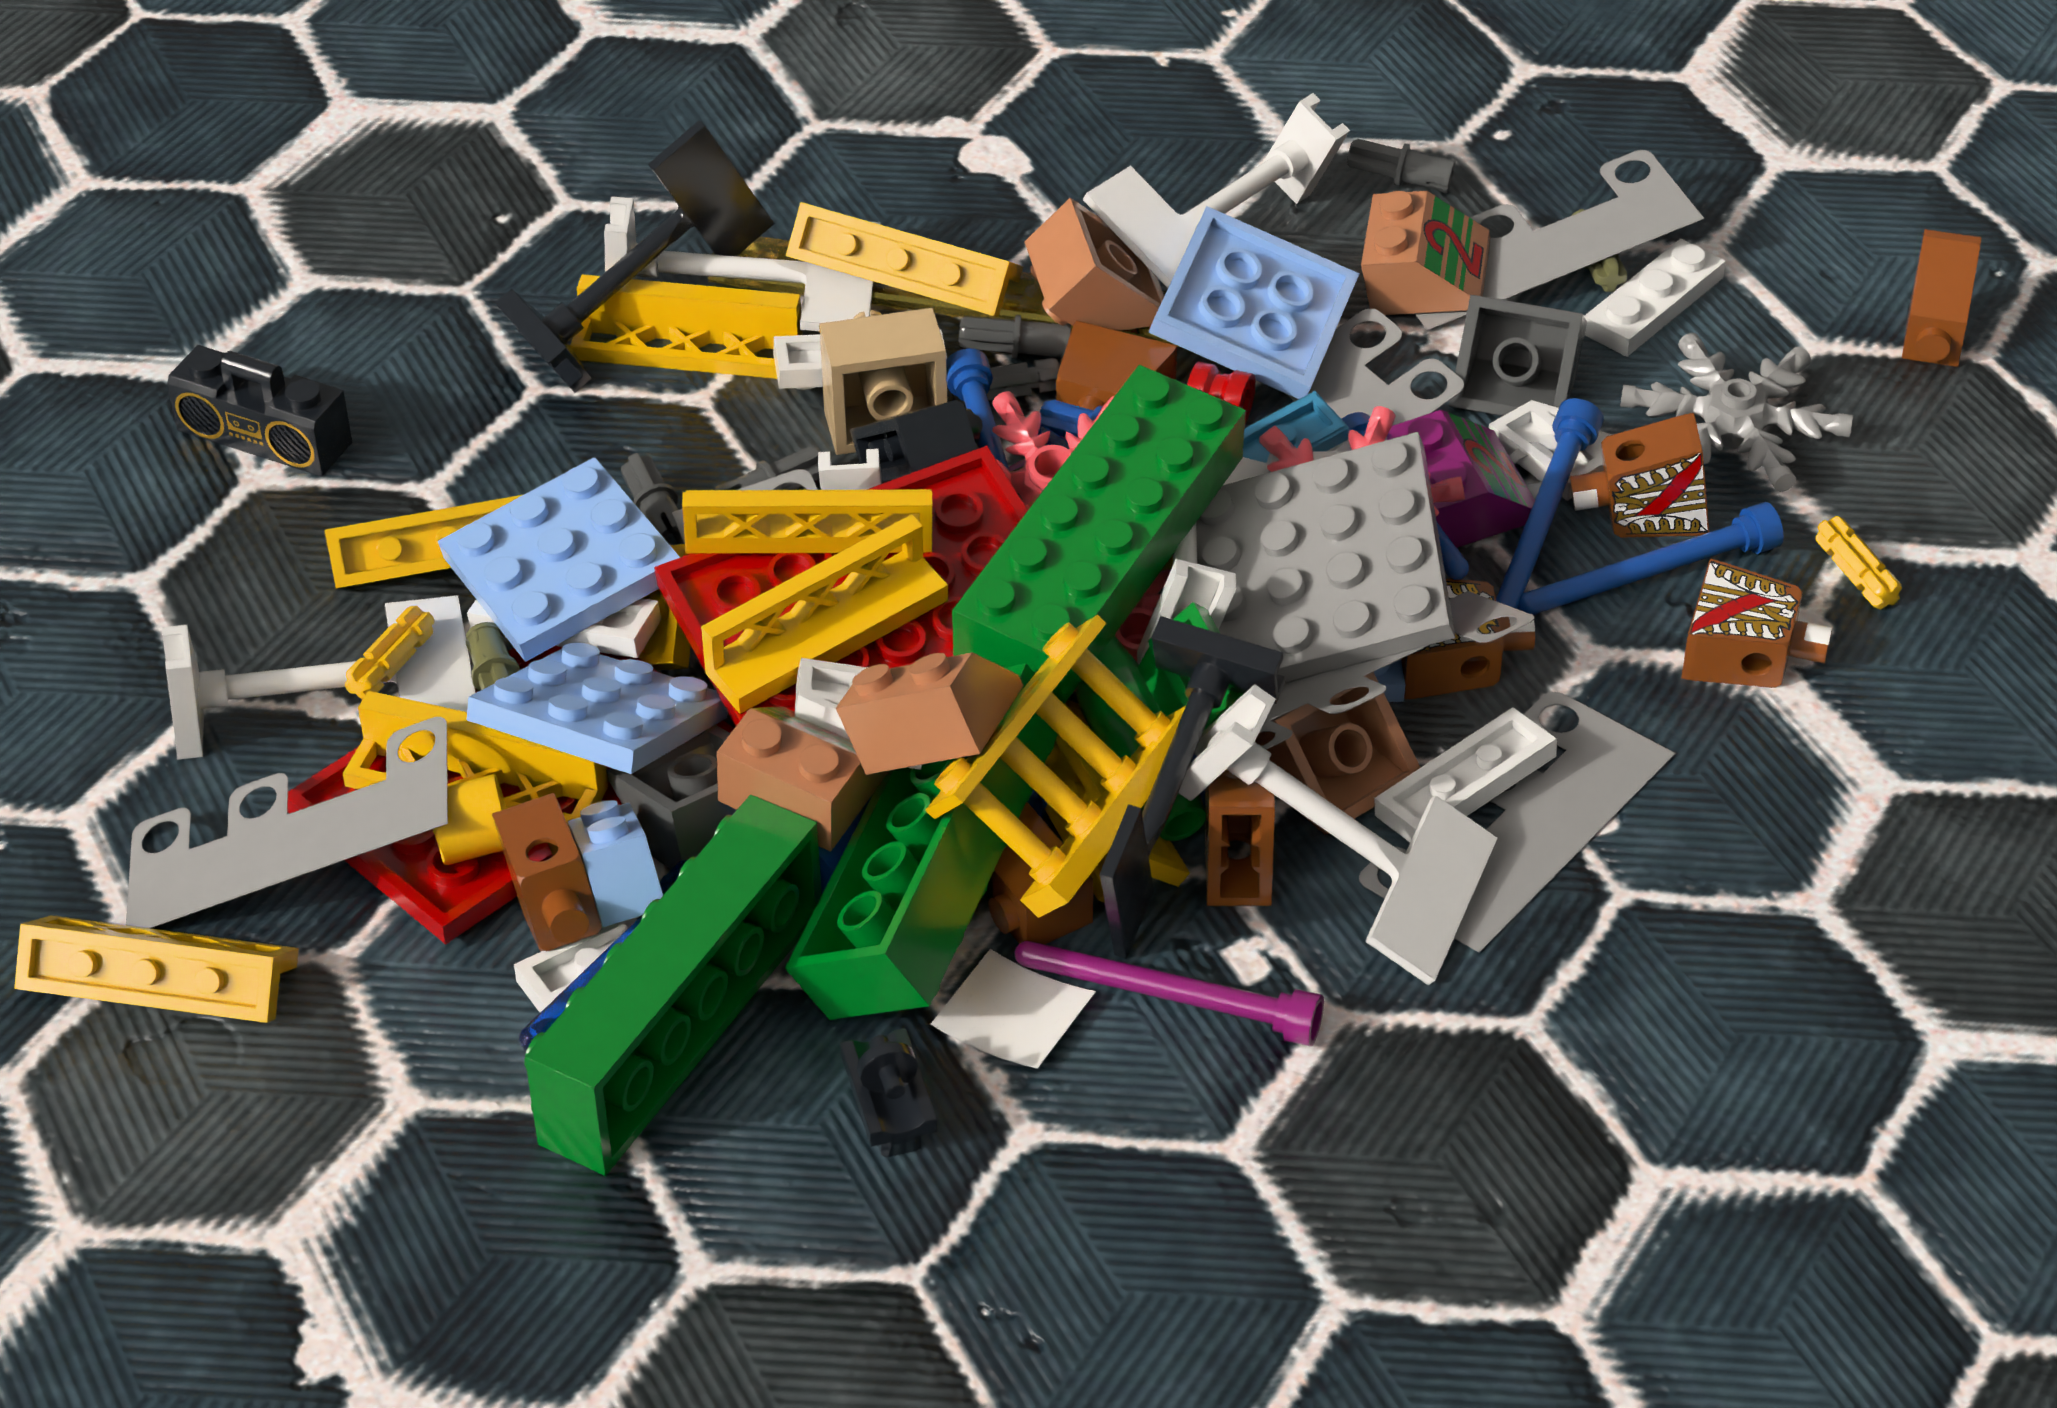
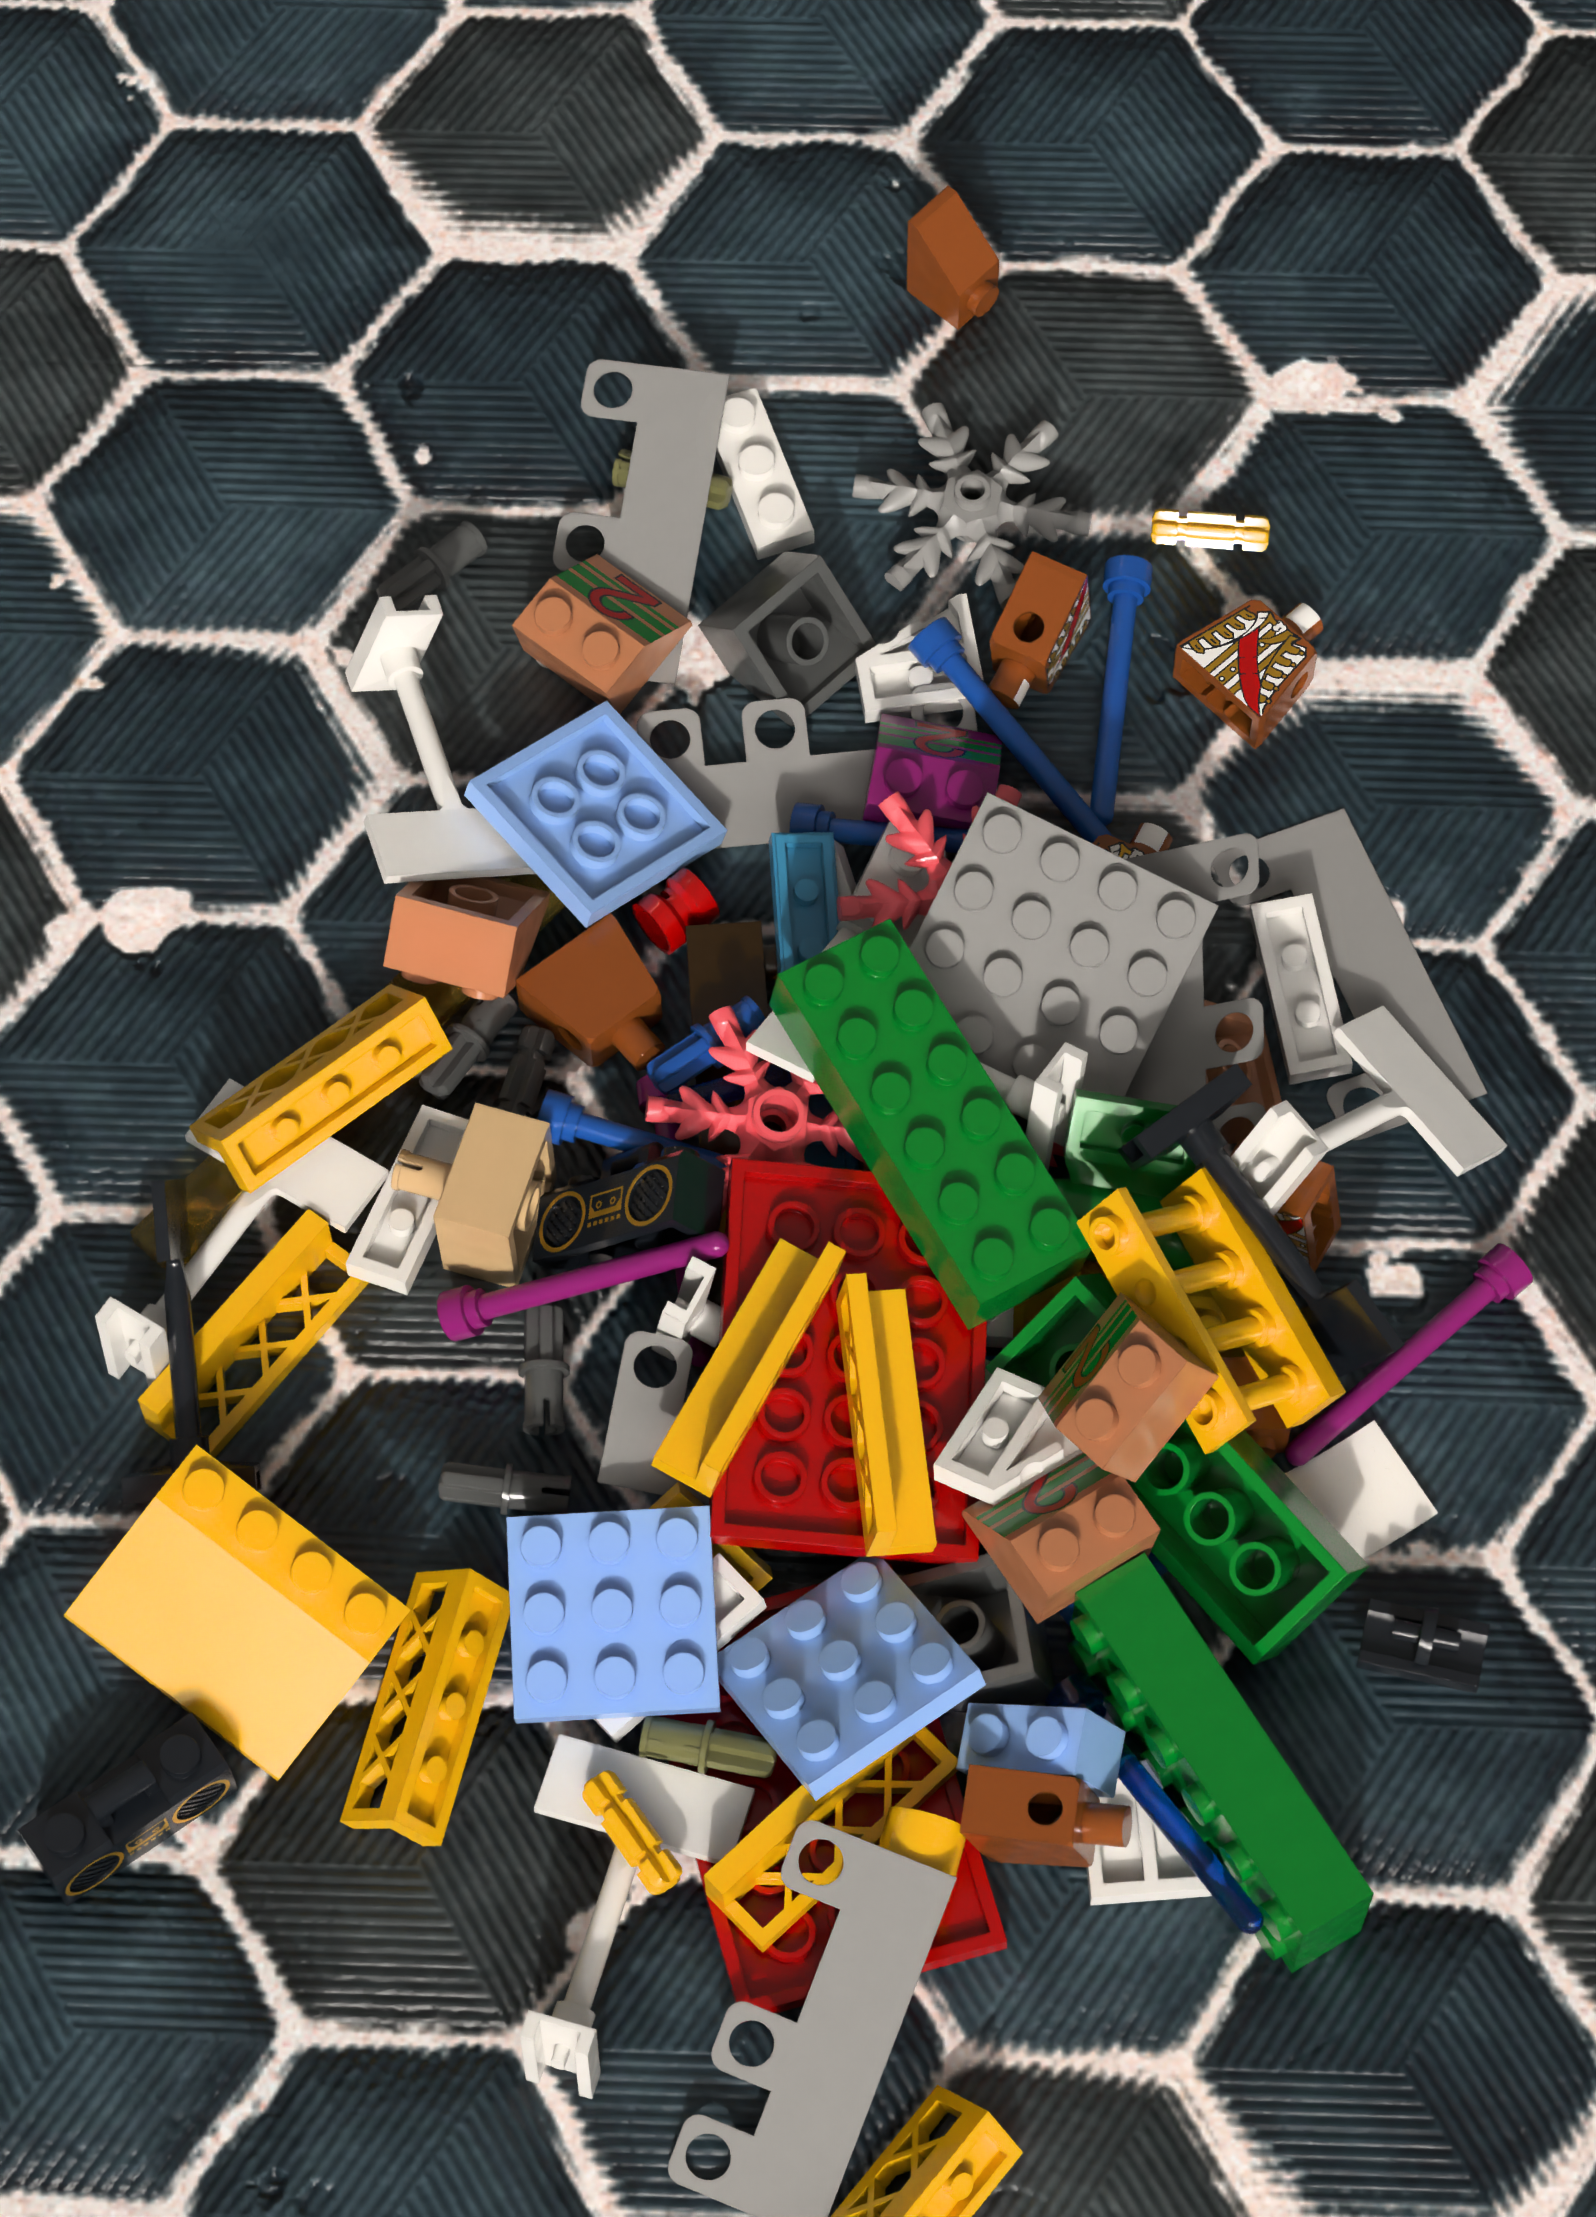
camera: 60 degrees left, 20 degrees up
(447, 388) = (236, 1612): none -> yellow slope
(789, 423) = (467, 1310): none -> magenta piece

